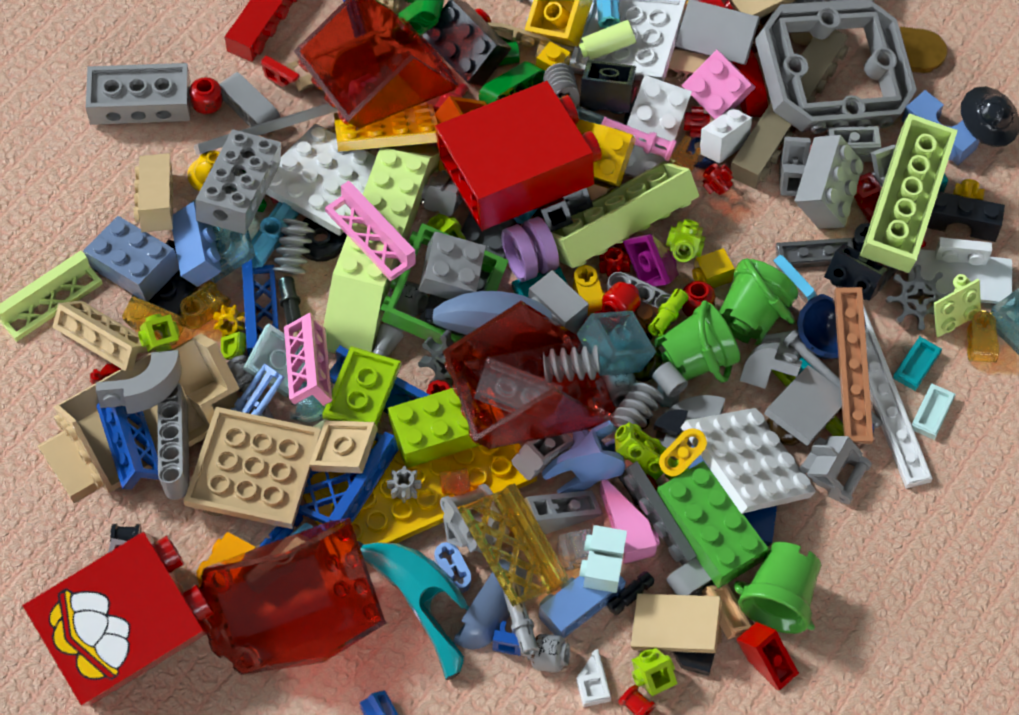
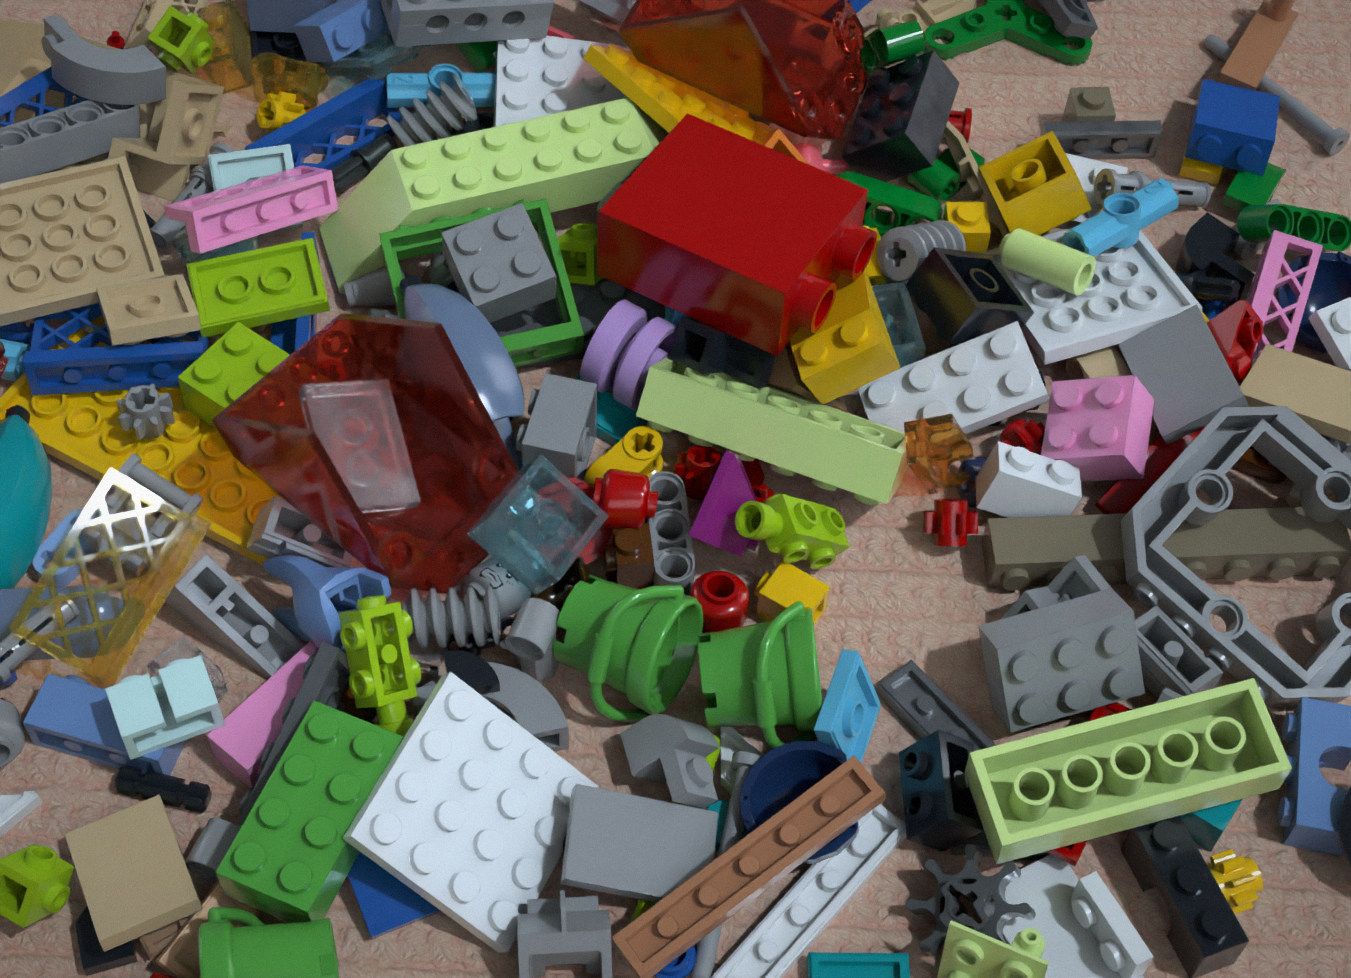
camera: 55 degrees right, 5 degrees down
(233, 345) = (247, 137): lime tile -> none
(242, 406) = (166, 190): light blue piece -> none
(375, 223) = (481, 154): bright pink fence -> none
(455, 482) = (177, 461): clear orange piece -> none
(571, 364) = (443, 478): light grey piece -> none
(652, 139) = (918, 391): bright pink pin -> none
(668, 312) = (650, 567): lime pin -> none
(682, 452) = (395, 696): yellow plate -> none

